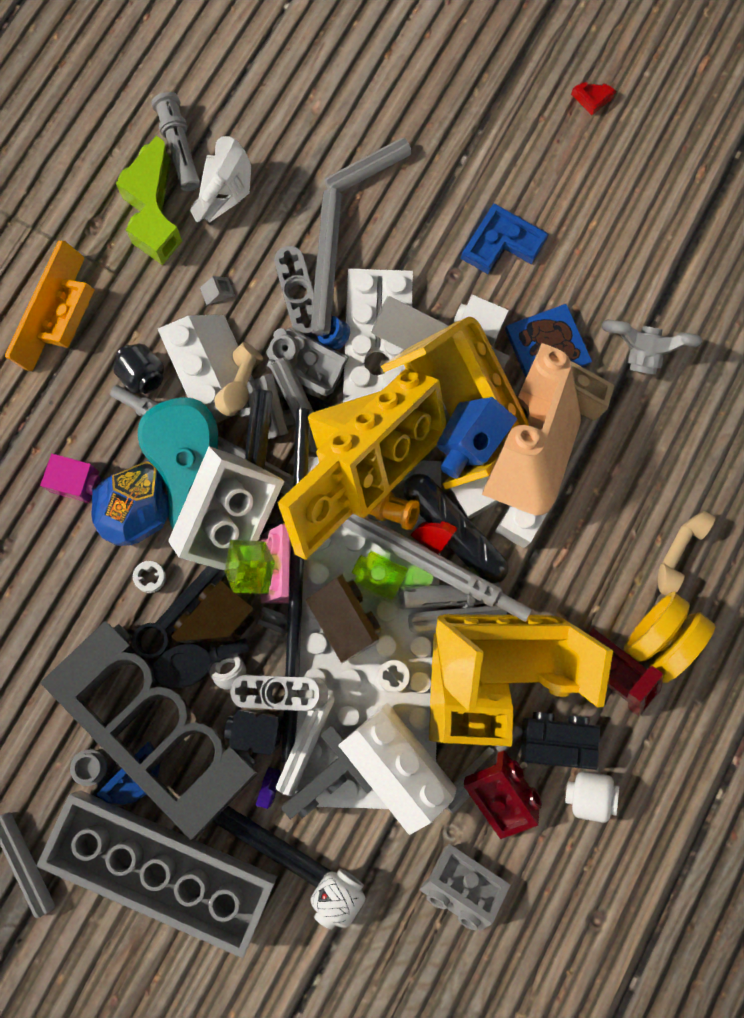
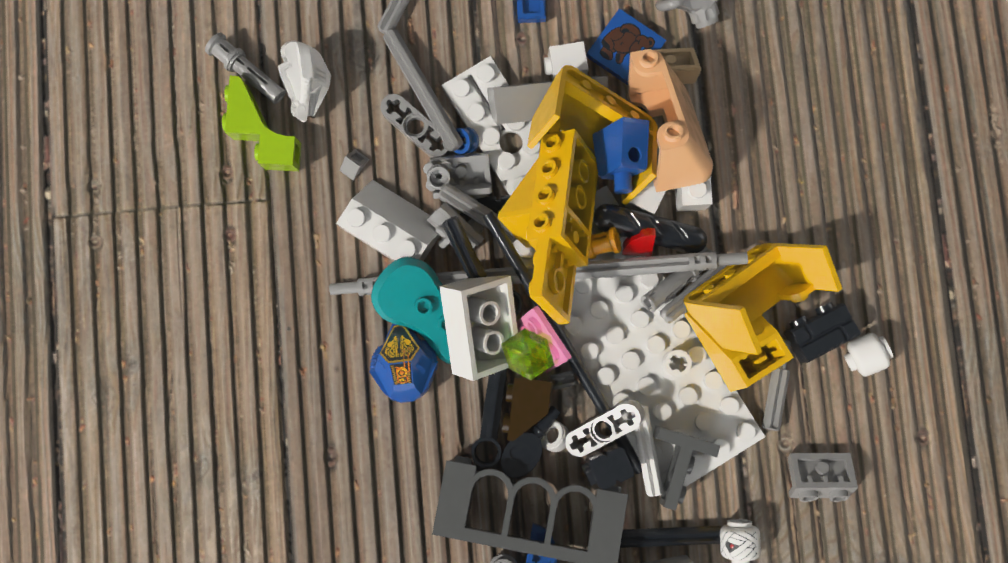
camera: 25 degrees left, 5 degrees up
(53, 309) = (244, 257): light orange bracket -> none
(70, 478) = (346, 374): dark pink brick -> none
(138, 368) = (339, 261): black head -> none
(148, 566) = (445, 401): white bush -> none
(235, 394) = (430, 236): tan bar -> none
(268, 788) = (642, 504): dark purple tile -> none
(343, 619) = (619, 347): dark brown slope -> none
(384, 588) = (633, 295): clear neon green brick -> none
(399, 769) = (728, 426): white slope -> none
(505, 797) = (809, 395): dark red bracket -> none
(630, 678) = (846, 255): dark red bracket -> none
(669, 578) = (822, 165): tan bar -> none
(670, 636) = (852, 208): yellow wheel -> none

